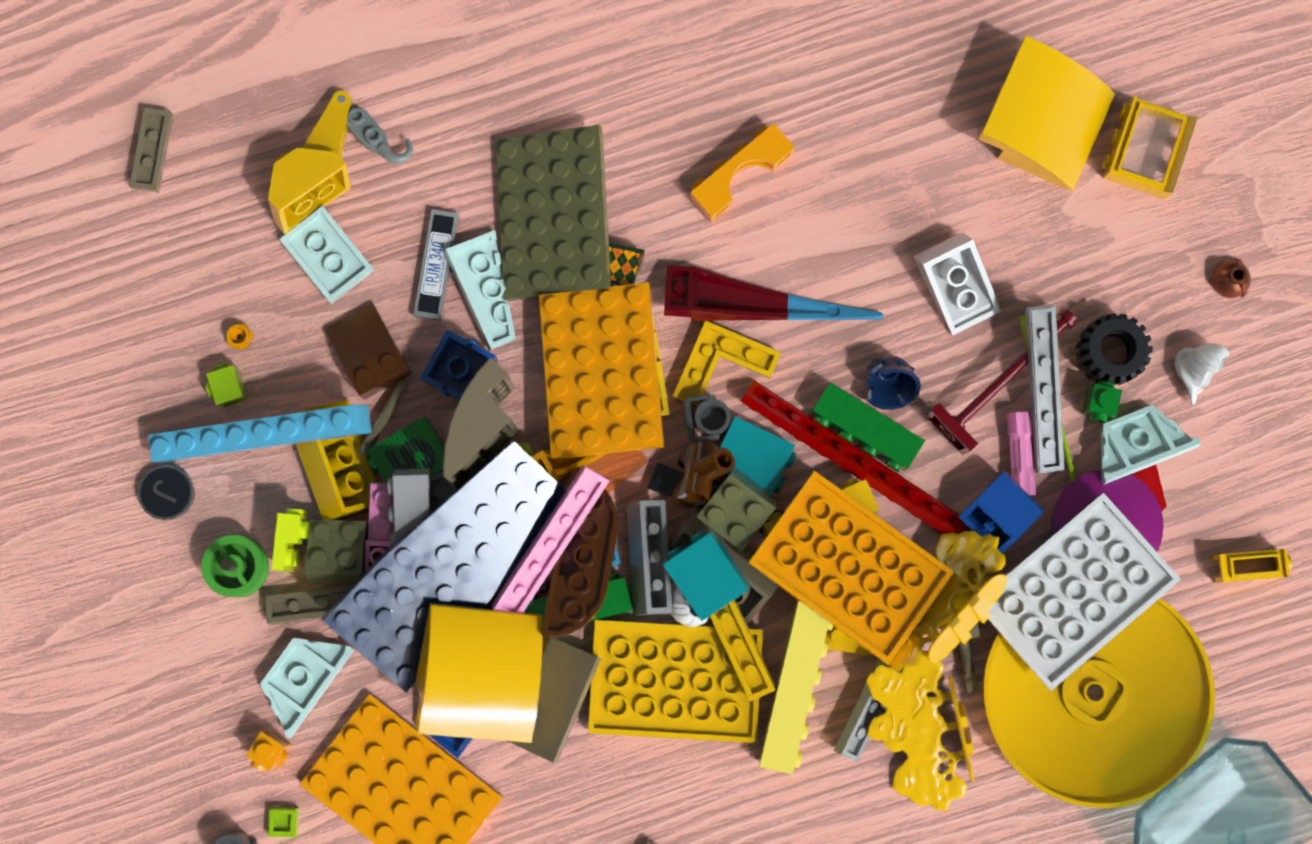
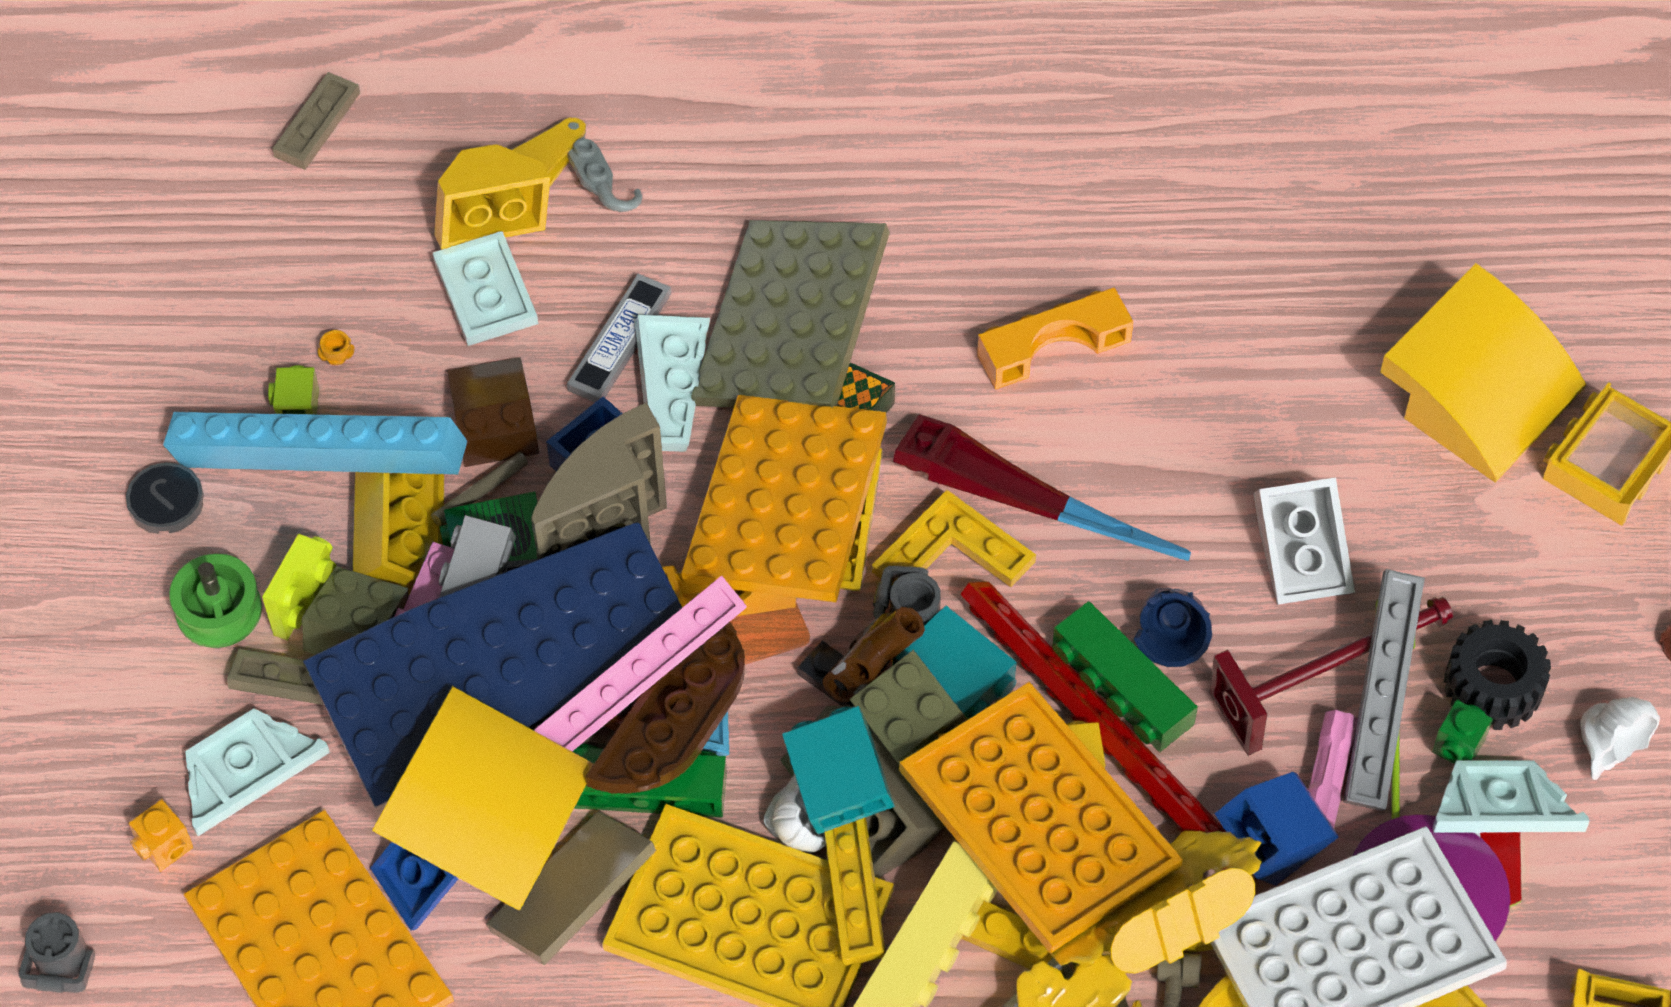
camera: 20 degrees right, 25 degrees down
(283, 822) = (140, 938): lime tile -> none
(647, 555) = (763, 753): light grey brick -> none

